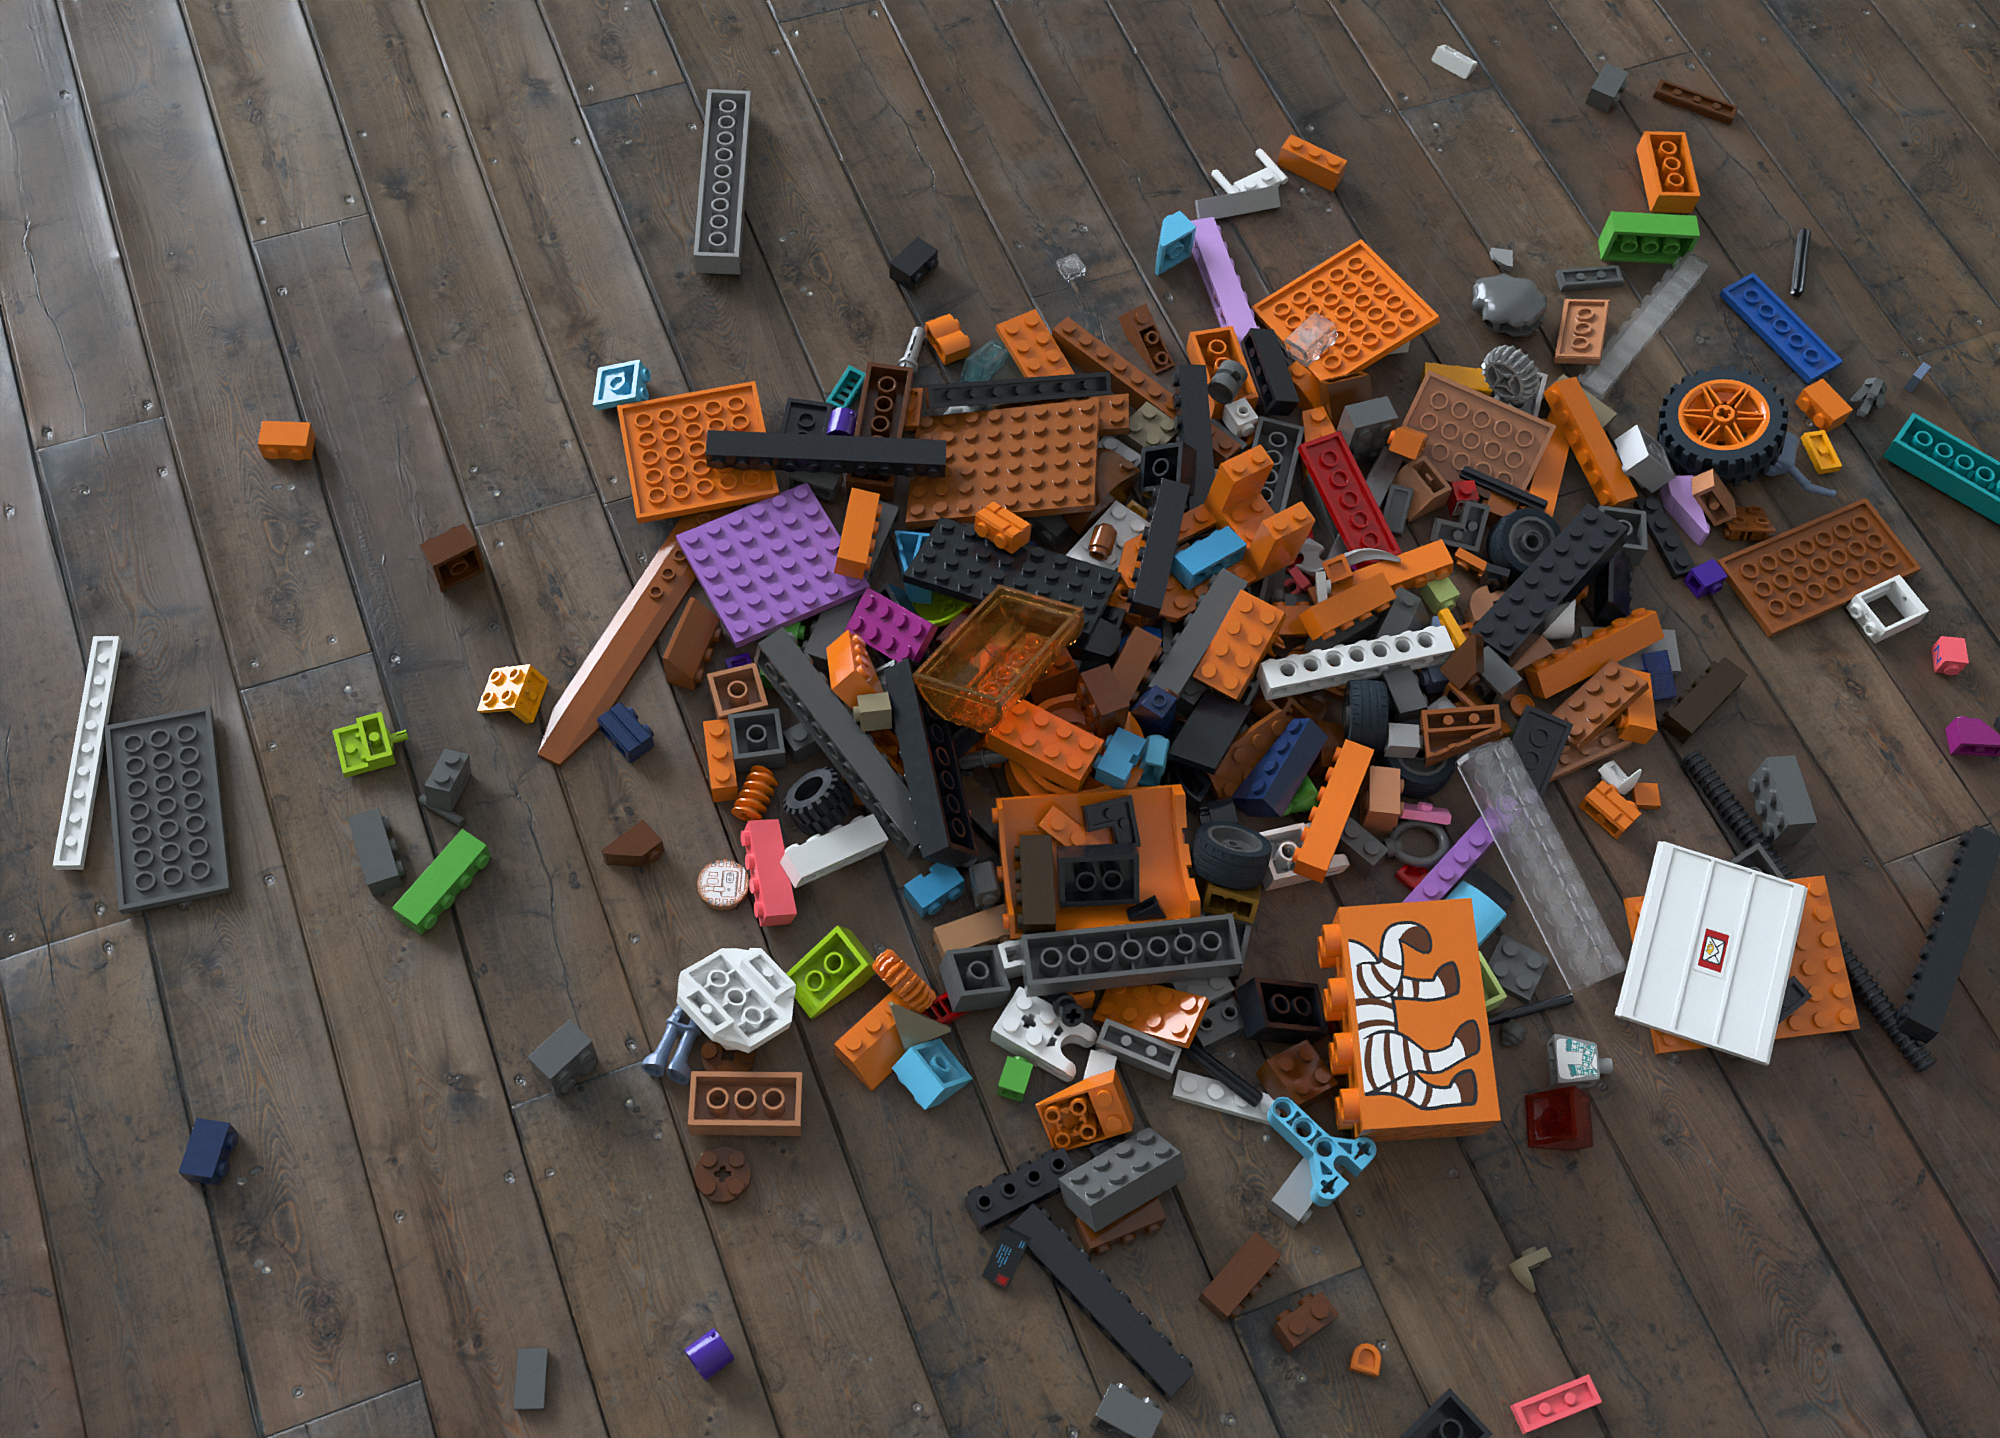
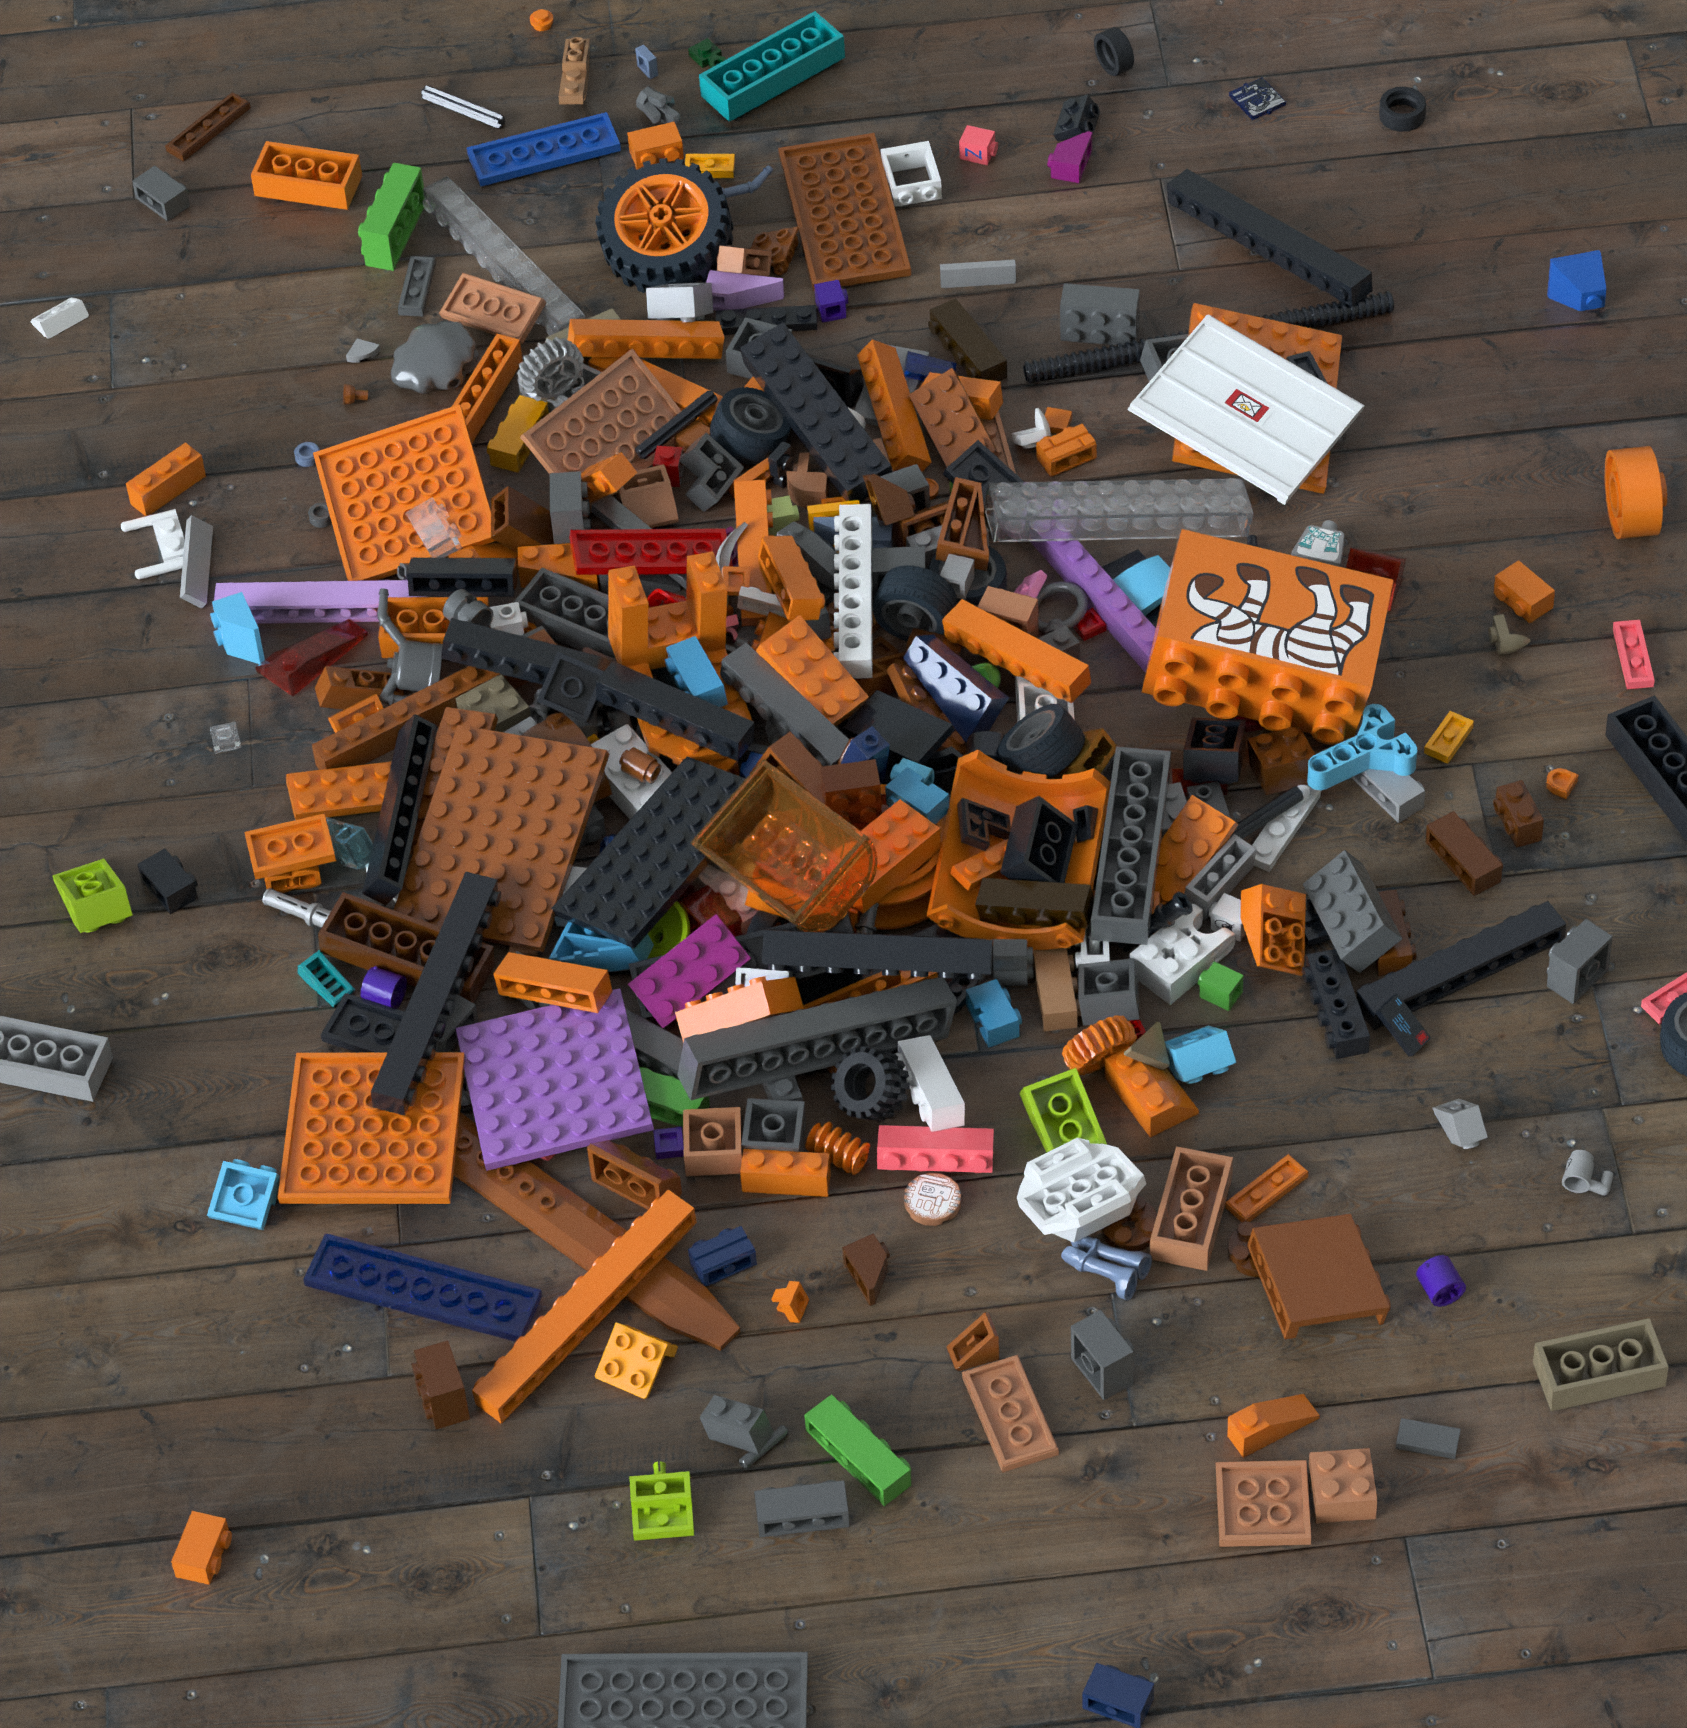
camera: 65 degrees left, 10 degrees down
(432, 1238) = (1263, 1503): none -> nougat plate
(457, 1306) = (1342, 1485): none -> nougat brick
(505, 998) = (1010, 1413): none -> nougat tile
(525, 1227) = (1268, 1422): none -> orange slope
(552, 641) = (583, 1306): none -> orange brick
(556, 528) = (422, 1287): none -> clear blue plate
(568, 953) = (975, 1345): none -> dark orange slope
(587, 796) = (791, 1301): none -> orange tile
(690, 1236) = (1317, 1272): none -> dark orange panel
(793, 1170) = (1266, 1189): none -> orange tile
(873, 712) = (806, 985): dark tan brick -> none
(886, 220) = (93, 896): none -> lime slope
(906, 1337) = (1461, 1122): none -> light grey slope
(957, 326) = (290, 846): none -> orange plate
(1002, 527) = (598, 843): orange brick -> none
(1116, 342) = (355, 713): none -> orange plate
(1169, 359) = (414, 664): none -> dark grey piece
(1170, 301) = (305, 660): none -> clear red wedge
(1381, 248) = (304, 454): none -> sand blue tile
(1383, 1234) = (1448, 737): none -> light orange plate
(1397, 507) = (660, 517): dark grey tile -> none
(1451, 260) = (351, 394): none -> dark orange piece
(1476, 342) = (489, 382): none -> orange brick
(1596, 1273) = (1524, 591): none -> orange brick
(1758, 1361) = (1634, 492): none -> orange piece
(1792, 690) = (978, 273): none -> light grey tile
(1877, 330) = (575, 71): none -> medium nougat slope
(1927, 293) = (541, 20): none -> orange plate
(1953, 420) = (706, 54): none -> dark green plate

